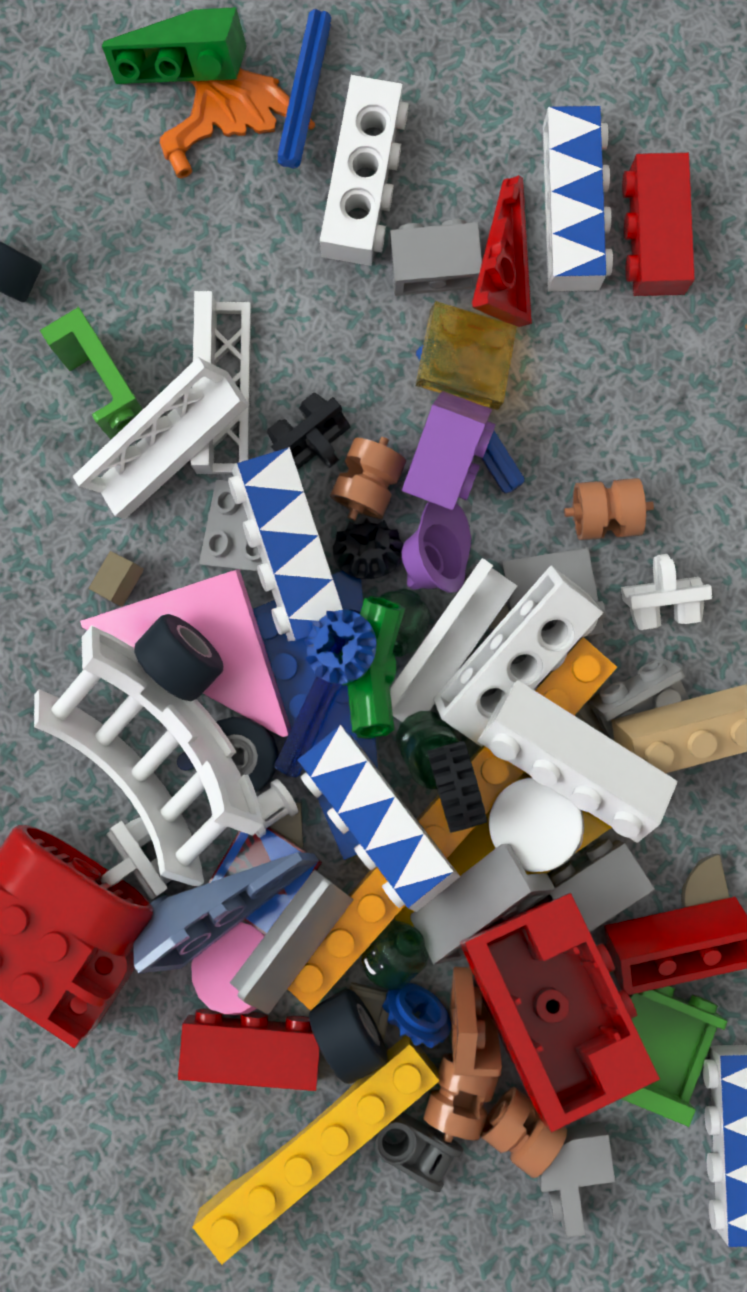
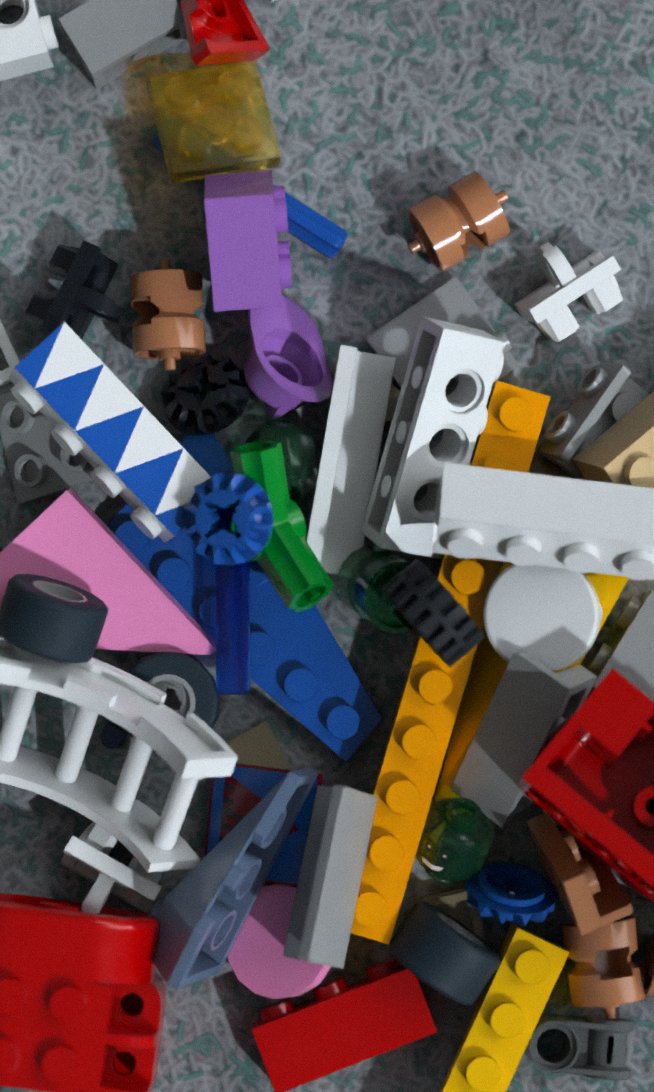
camera: 30 degrees left, 0 degrees up
(274, 805) = (240, 733): white bush -> none
(377, 819) = (361, 692): brick -> none

